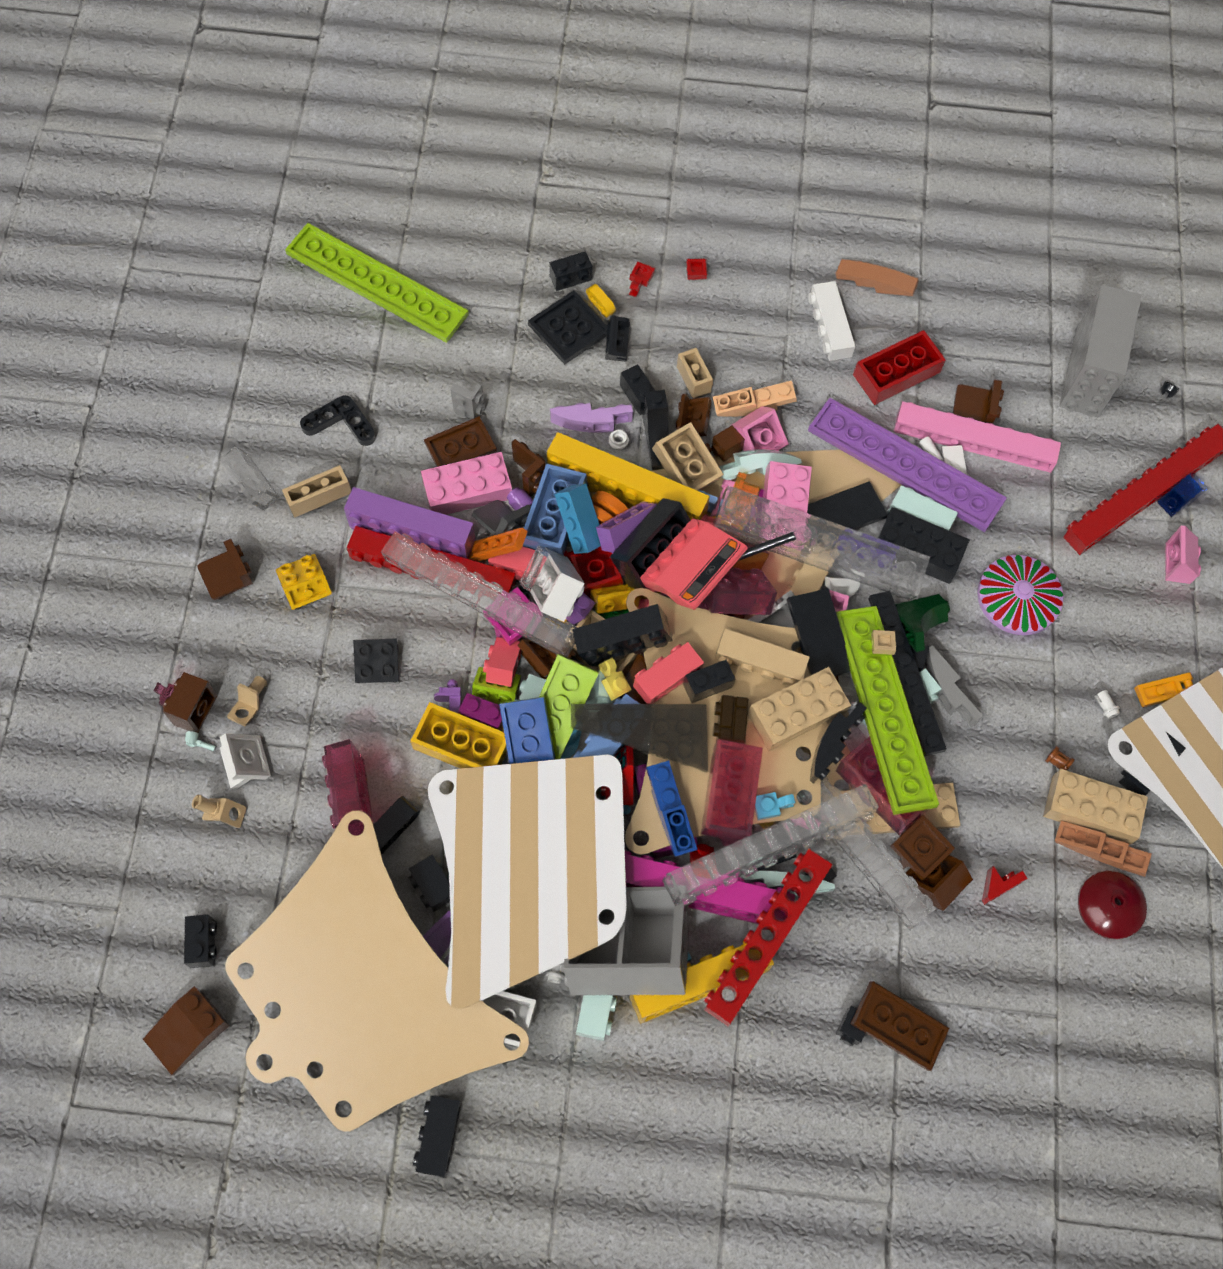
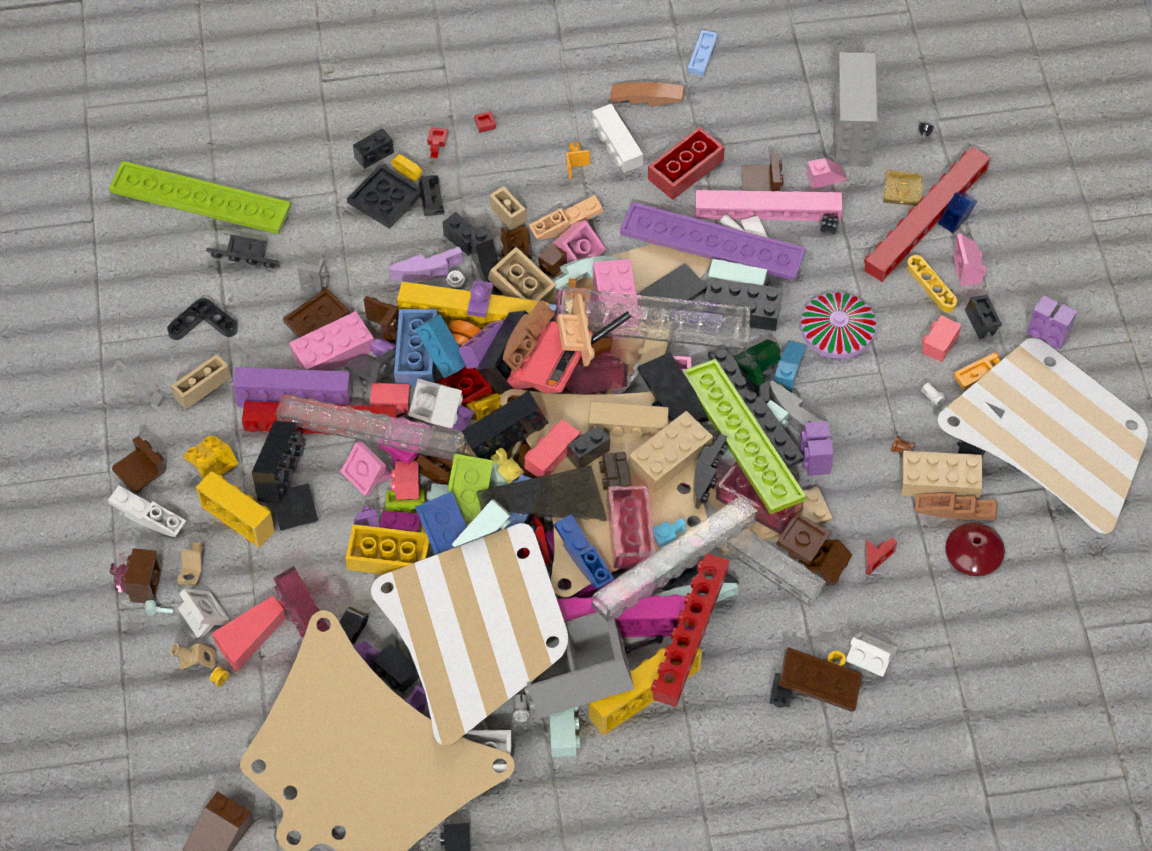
camera: 10 degrees left, 10 degrees down
(200, 941) = (209, 761): black brick -> none
(217, 627) = (145, 513): none -> white slope
(240, 841) = (219, 676): none -> yellow bush
(284, 797) = (246, 633): none -> coral slope
(311, 648) = (235, 509): none -> yellow brick
(368, 607) = (277, 461): none -> black brick
(402, 856) = (367, 652): none -> medium lavender piece
(406, 351) = (245, 249): none -> black bracket
(462, 637) = (364, 469): none -> bright pink bracket
(498, 545) = (376, 384): orange tile -> none
(534, 568) = (412, 396): clear tile -> none
(570, 746) = (488, 521): none -> light aqua slope
(635, 473) = (480, 298): none -> medium lavender tile
(669, 534) = (524, 335): none -> nougat slope
(727, 543) = (574, 331): none -> light nougat bracket
(730, 922) = (658, 639): none -> black hinge
(782, 332) = (576, 158): none -> light orange bracket
(842, 585) = (683, 350): white tile -> none
(883, 642) = (728, 383): tan plate -> none
(927, 996) = (839, 655): none -> yellow bush
(946, 246) = (702, 52): none -> light blue tile
(956, 629) = (790, 365): none -> dark azure slope
(962, 746) = (816, 448): none -> medium lavender piece
(966, 1006) = (871, 653): none -> white bracket
(1038, 474) = (829, 224): none -> black wheel
(1046, 414) = (824, 172): none -> bright pink slope
(1128, 451) = (903, 188): none -> clear yellow tile
(1131, 572) = (934, 282): none -> yellow beam
(1132, 640) = (941, 338): none -> coral brick
(1184, 625) = (982, 316): none -> black hinge

